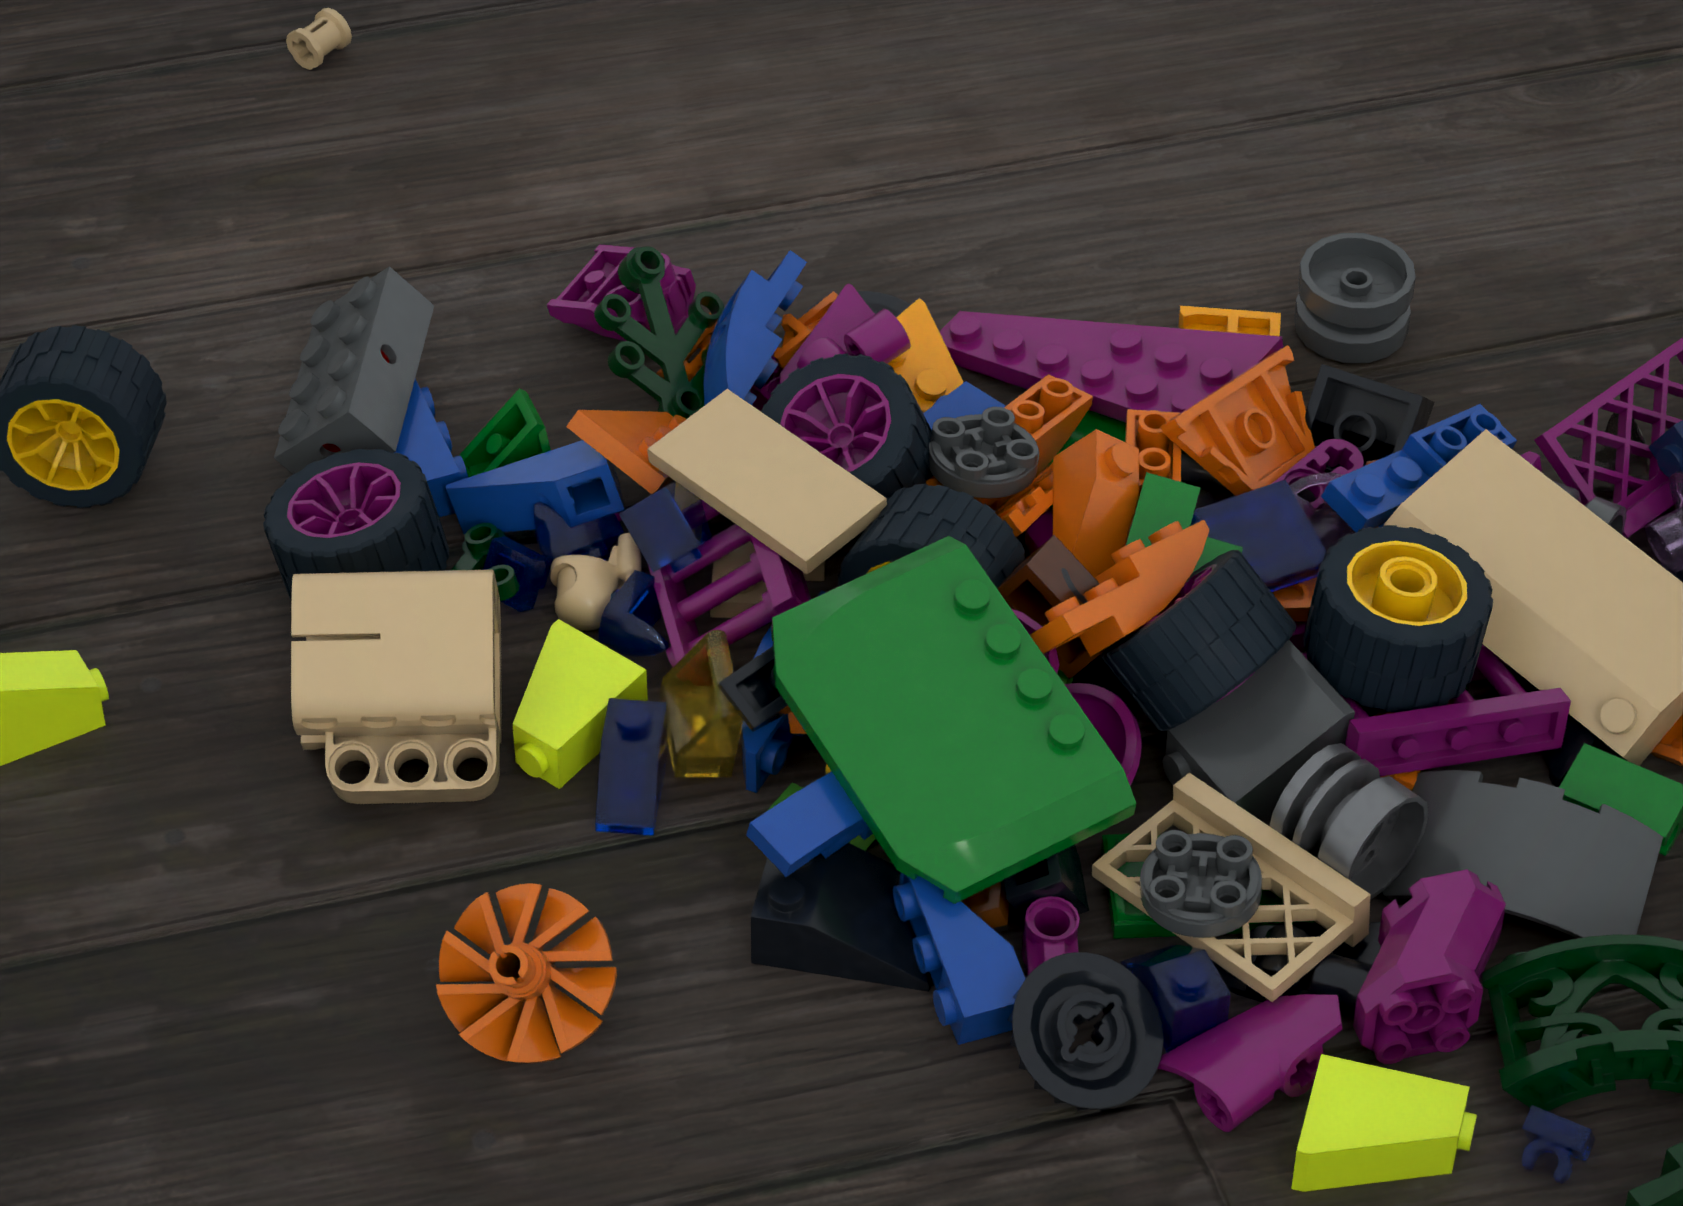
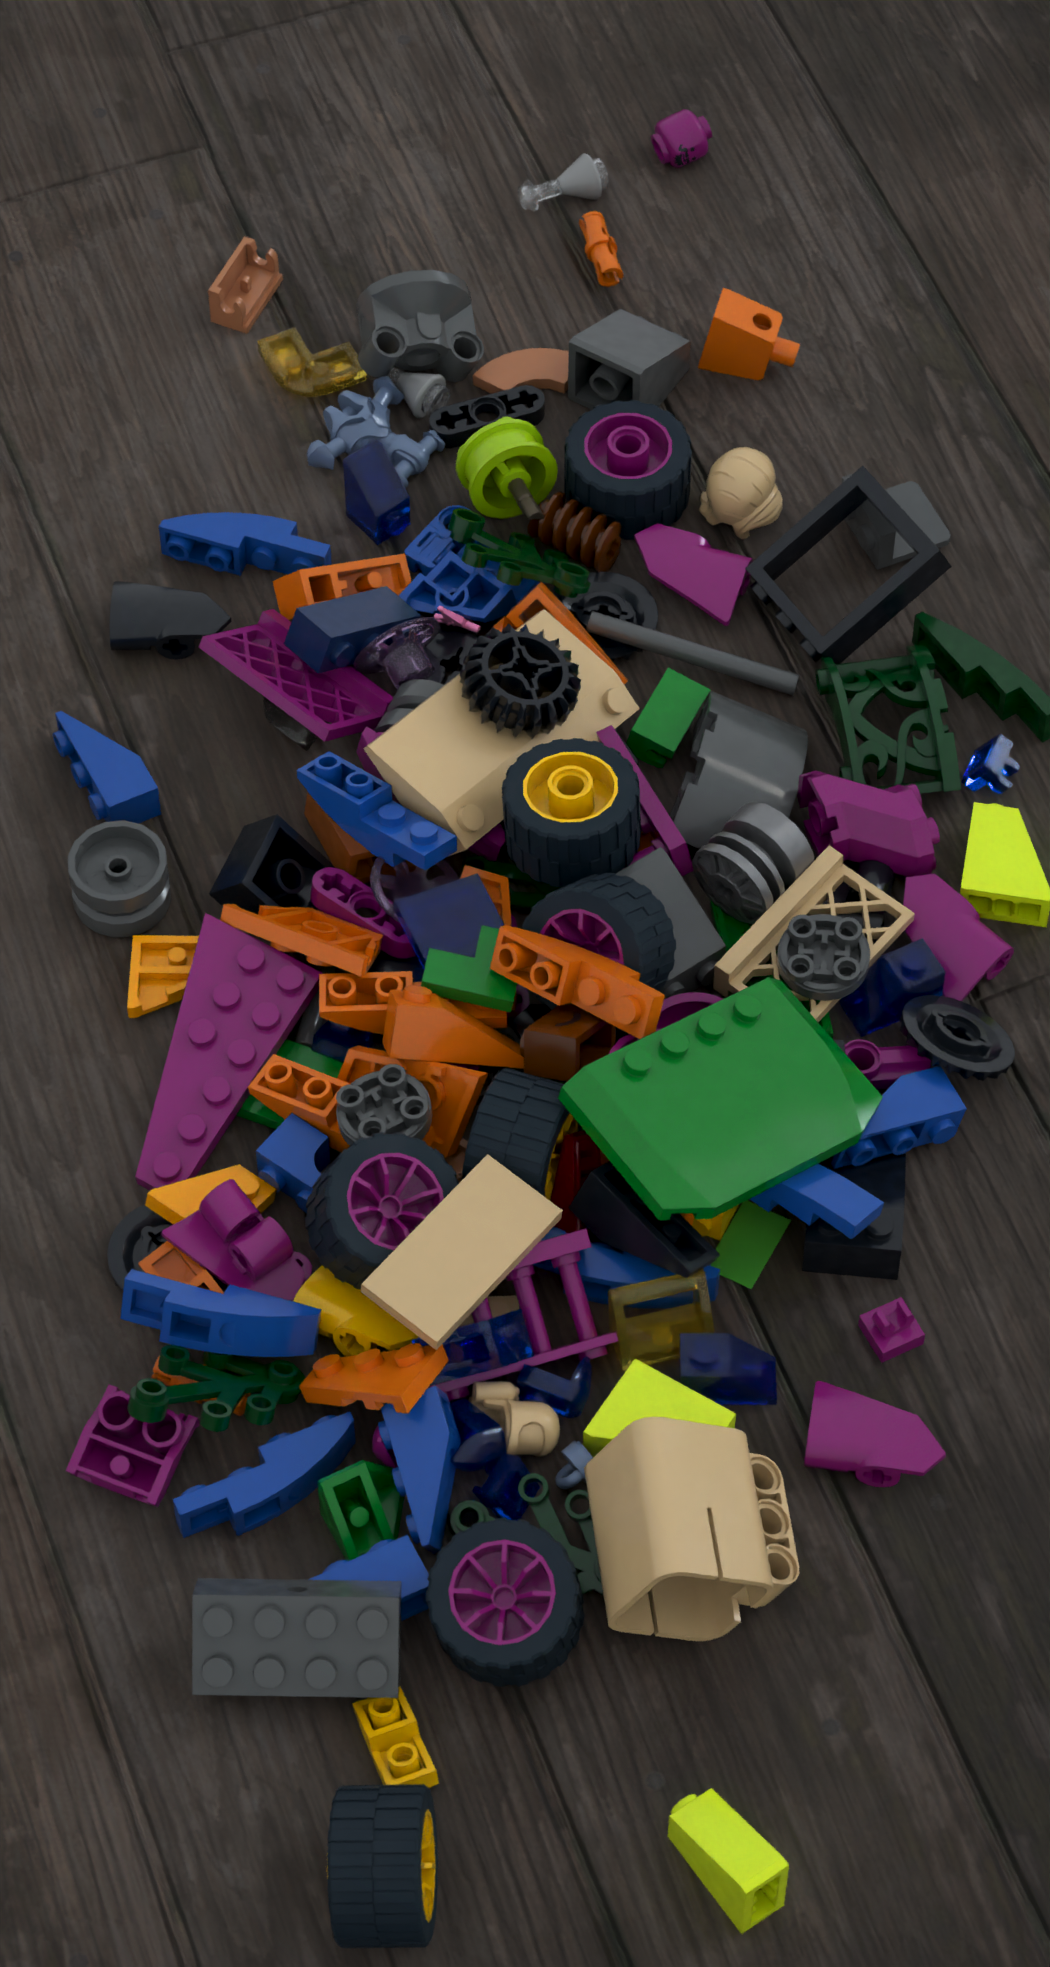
camera: 95 degrees left, 10 degrees up
(233, 484) = (395, 1741): none -> yellow slope
(510, 1016) = (974, 1394): orange piece -> none
(526, 635) = (573, 1471): none -> sand blue tile
(526, 853) = (867, 1438): none -> magenta panel
(552, 380) = (285, 1476): none -> blue slope
(674, 938) = (891, 1329): none -> magenta tile
(1513, 306) = (111, 773): none -> blue slope
(1586, 601) = (512, 691): none -> black gear

